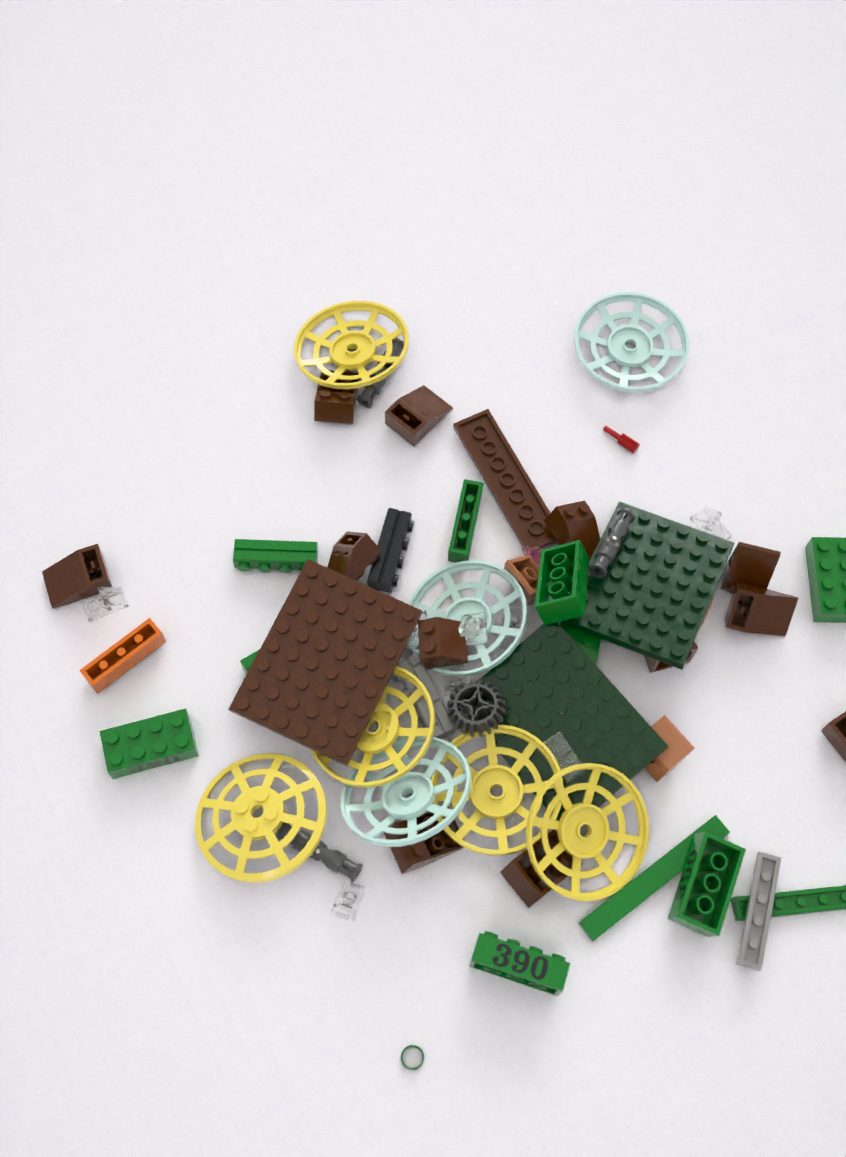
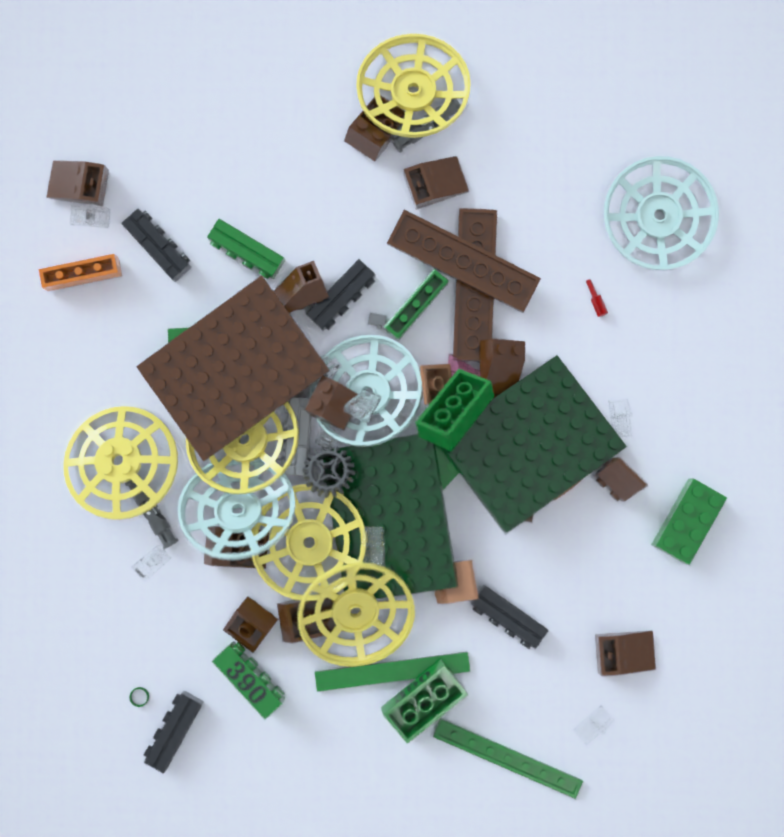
camera: 30 degrees right, 20 degrees up
(148, 743) = (66, 356): green brick -> none
(186, 594) = (156, 245): none -> black brick
(436, 555) = (377, 320): none -> flat silver piece
(471, 1072) = (173, 732): none -> black brick
(485, 909) = (250, 624): none -> reddish brown slope
(486, 462) = (463, 261): none -> reddish brown plate
(611, 543) = (530, 387): dark grey piece -> none
(733, 757) = (510, 617): none -> black brick
(759, 610) = (607, 514): reddish brown slope -> none
(759, 911) = (451, 742): light grey plate -> none

